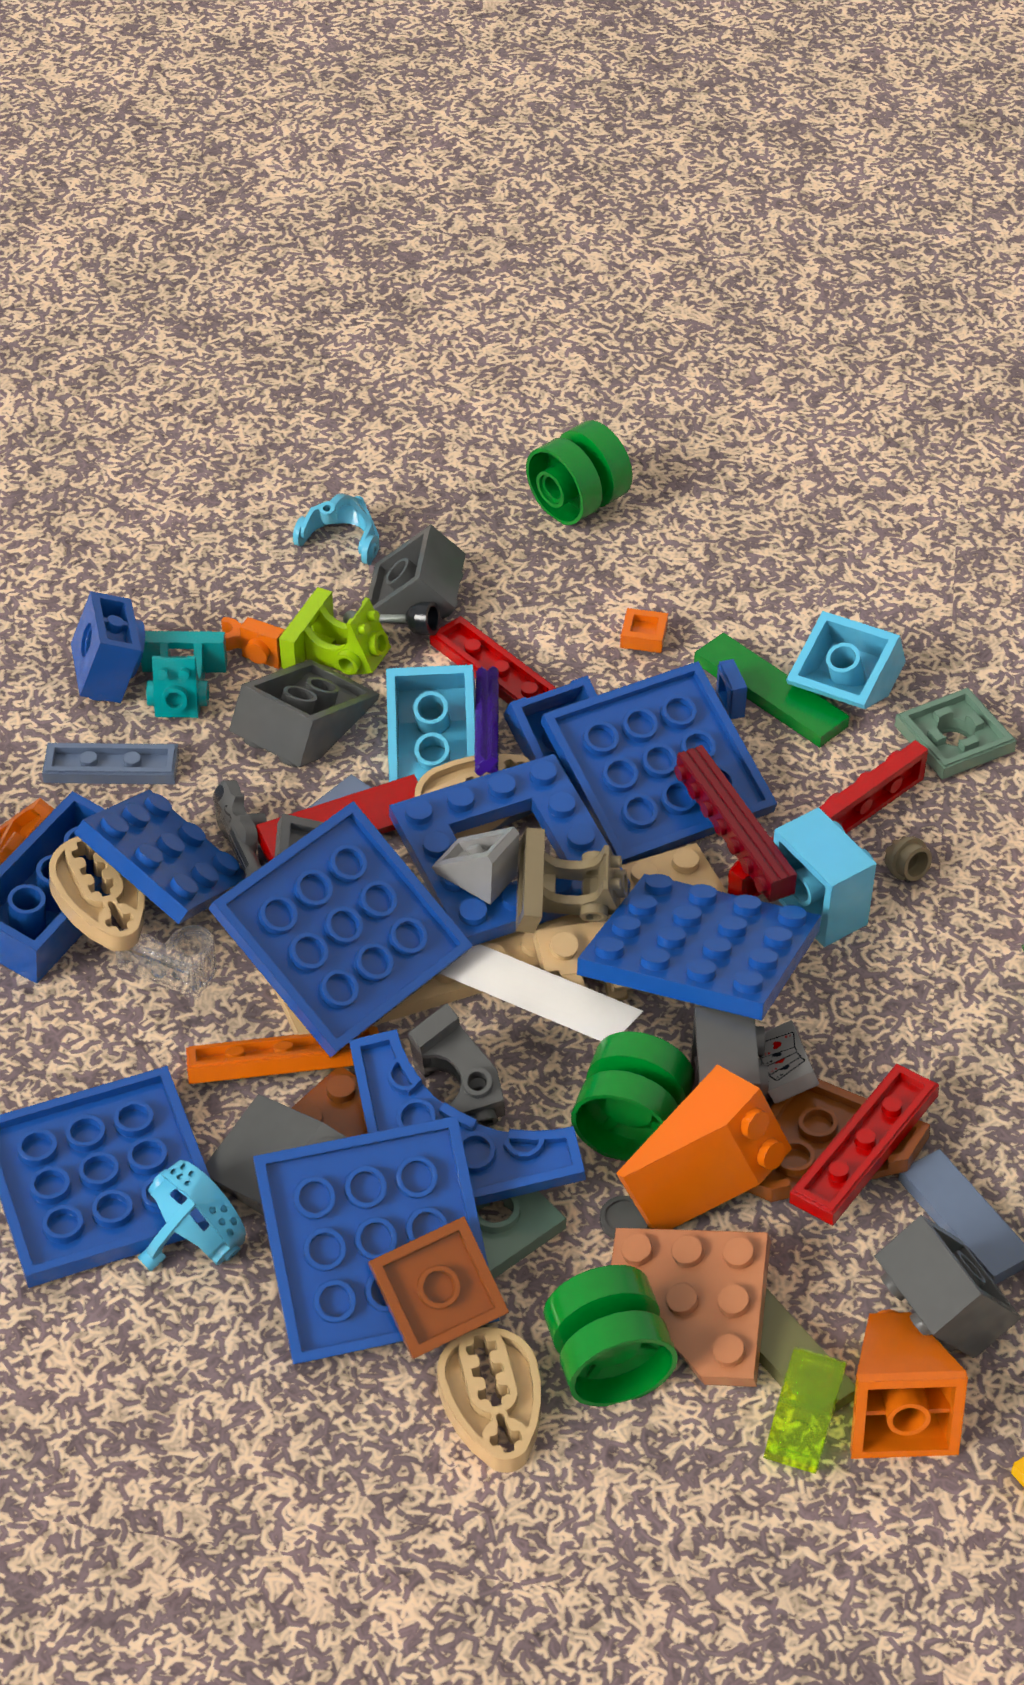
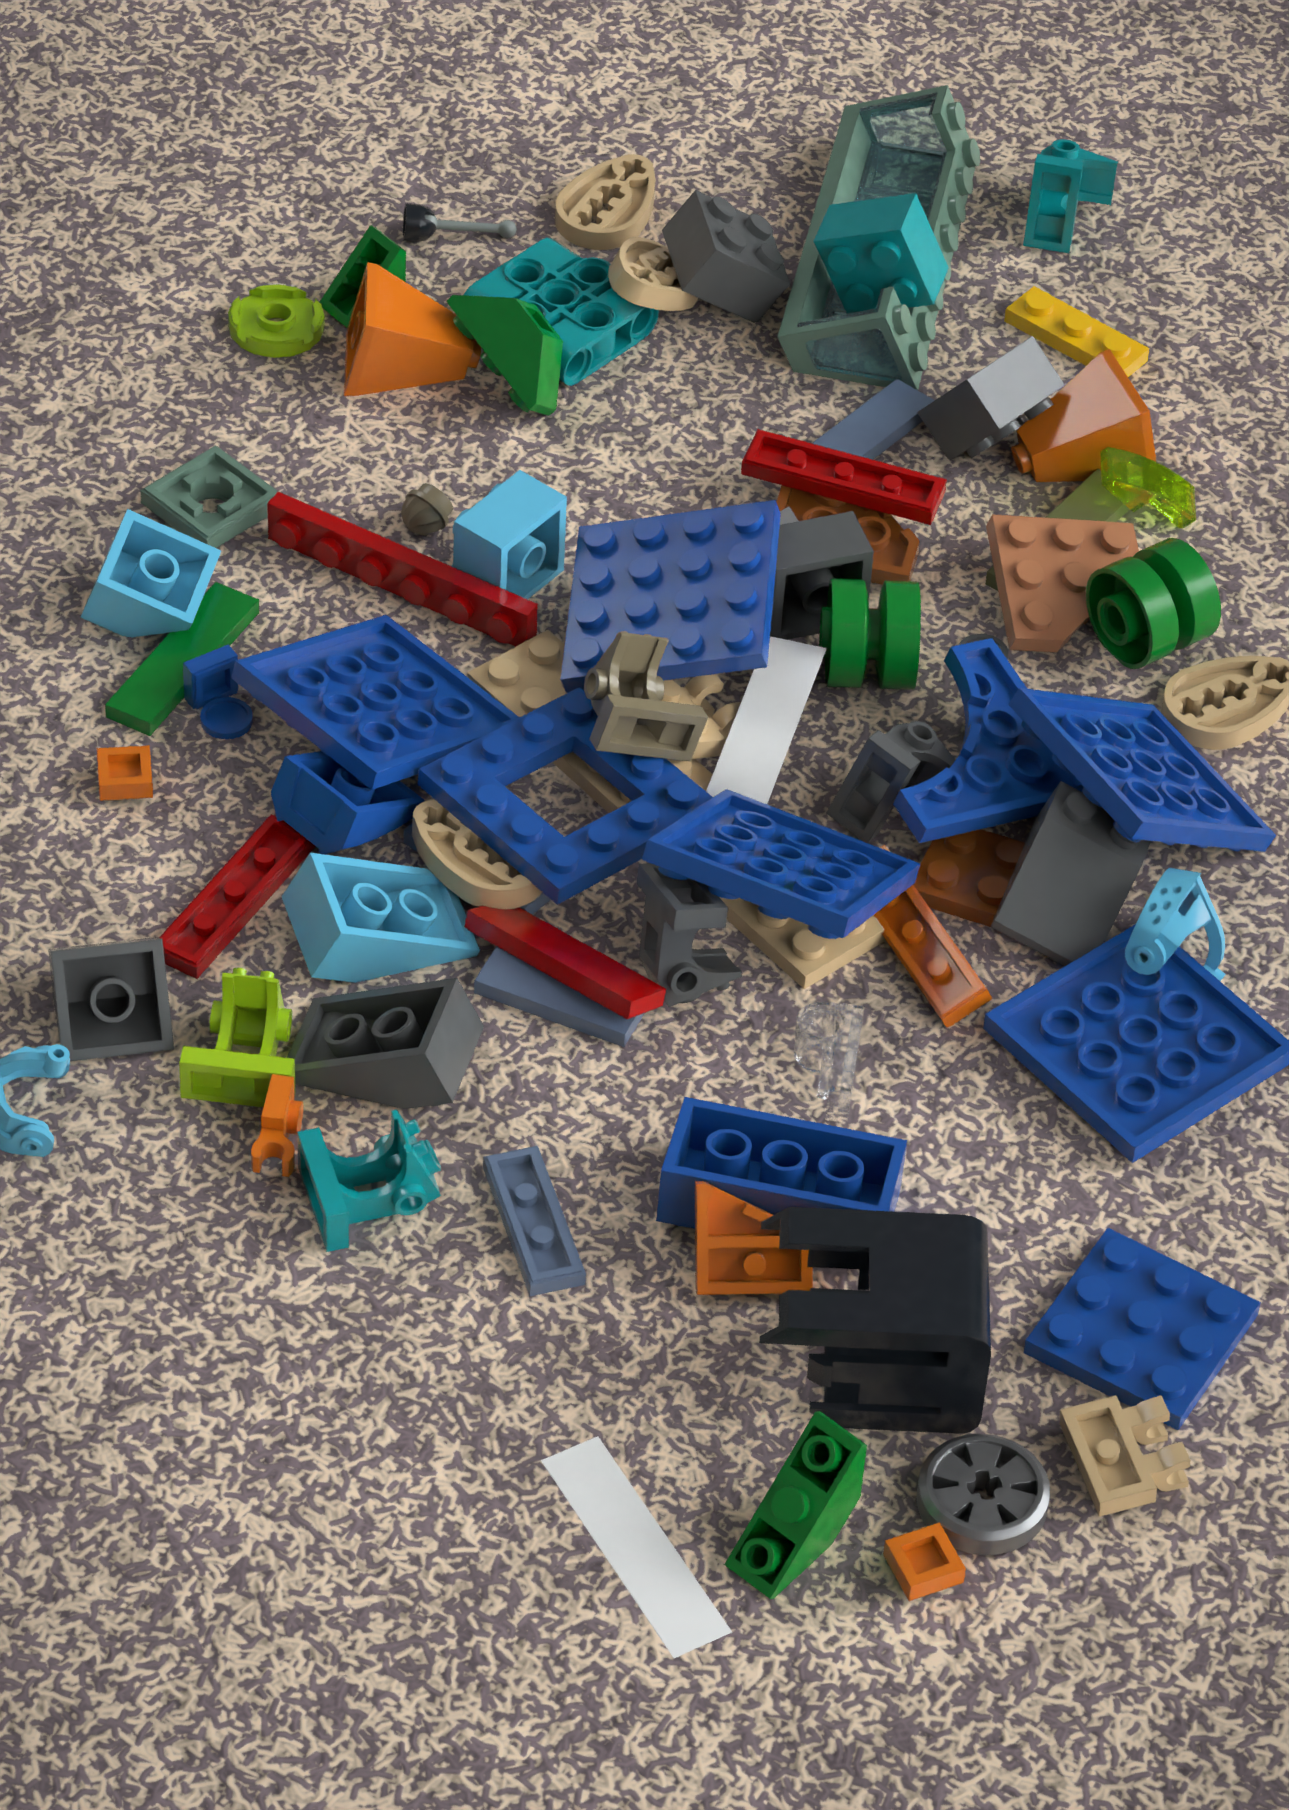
camera: 110 degrees left, 0 degrees up
(87, 908) = (830, 1092): tan piece -> none
(107, 647) = (396, 1256): blue brick -> none
(161, 854) = (726, 1057): blue plate -> none
(237, 824) = (596, 1054): dark grey piece -> none
(420, 618) = (188, 963): black hinge -> none
(438, 1287) = (1168, 719): dark orange plate -> none
(482, 862) = (639, 766): light grey slope -> none
(486, 721) = (384, 844): dark purple axle -> none
(705, 1152) = (925, 542): orange slope -> none
(736, 824) = (467, 609): dark red piece -> none

